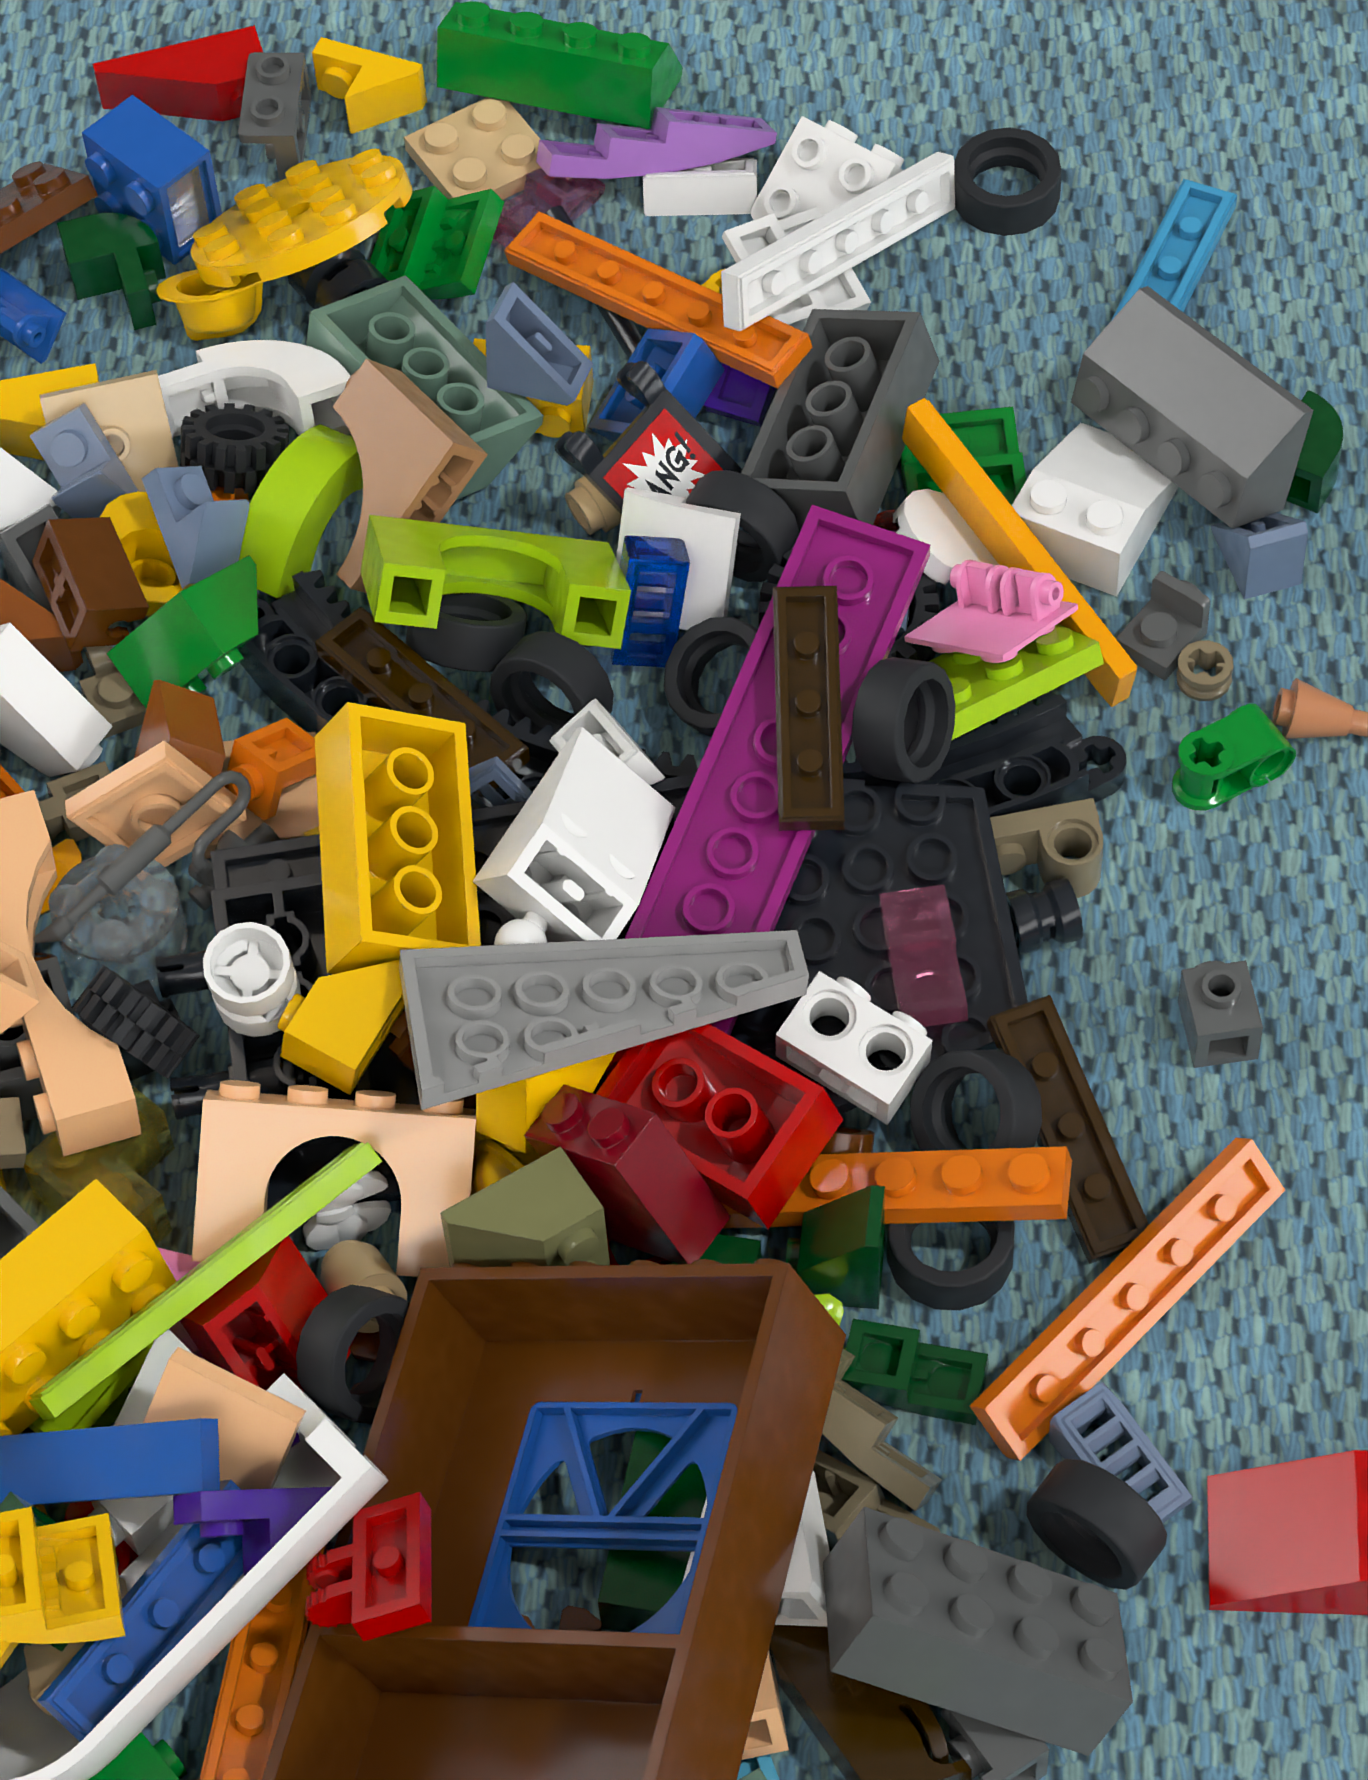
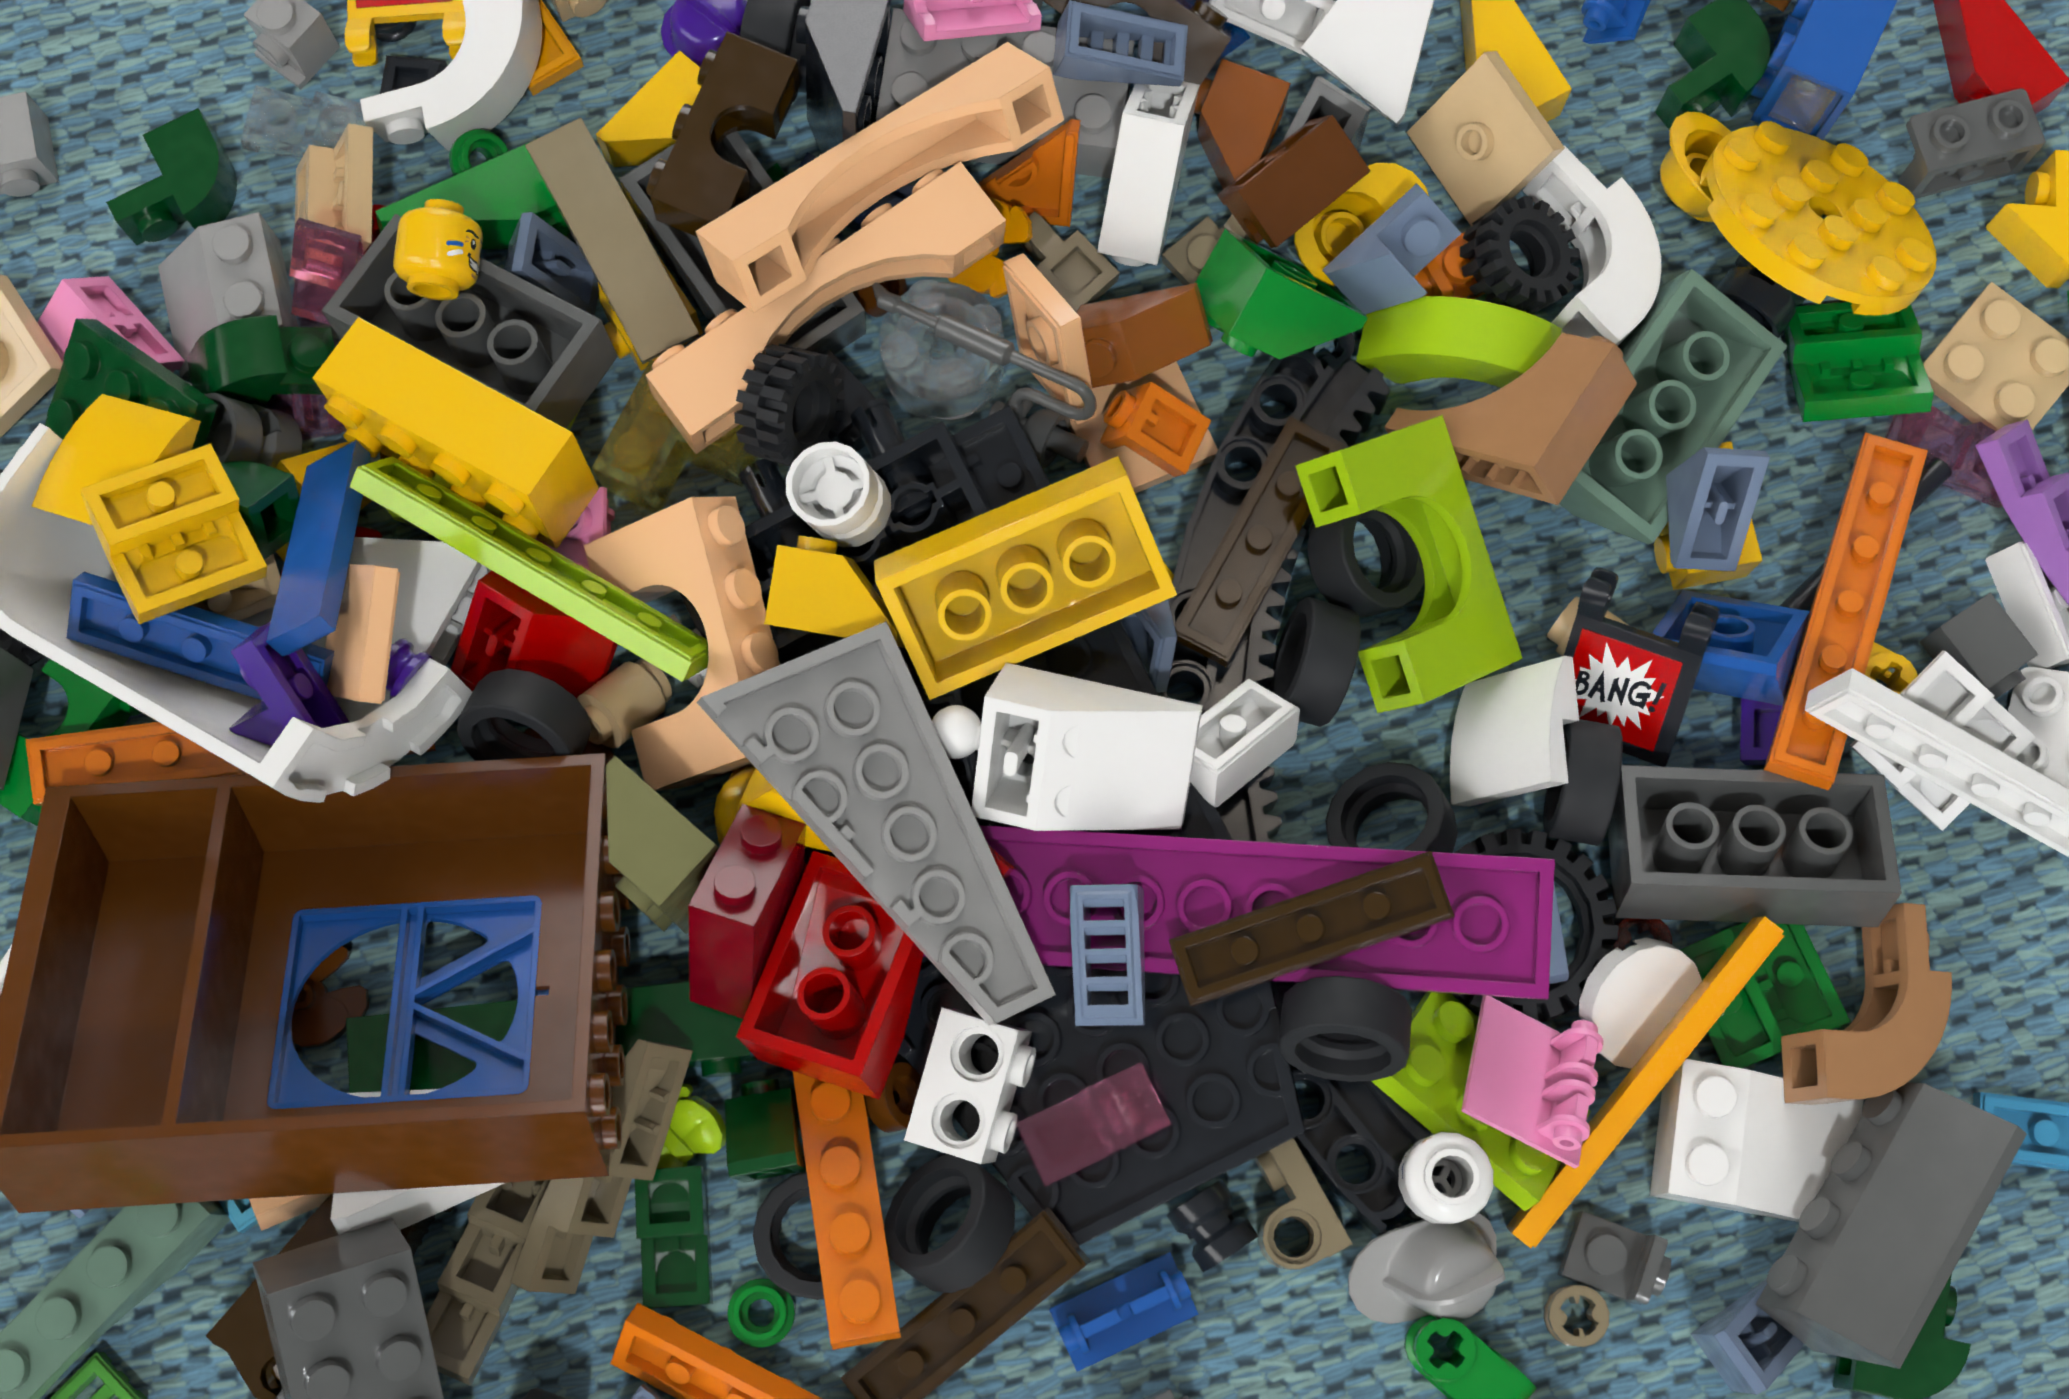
camera: 70 degrees right, 20 degrees up
(82, 463) = (1439, 128): sand blue slope -> none
(381, 1577) = (254, 830): red hinge -> none
(652, 563) = (1460, 722): clear blue slope -> none
(705, 222) = (1984, 644): none -> dark grey brick
(758, 849) = (1082, 928): none -> sand blue slope
(1014, 1297) = (740, 1319): none -> green plate
(1022, 369) = (1894, 1029): none -> medium nougat arch
(1058, 693) = (1469, 1173): none -> white head
(1098, 1008) = (1123, 1311): none -> blue hinge
(1133, 756) = (1427, 1271): none -> light grey piece

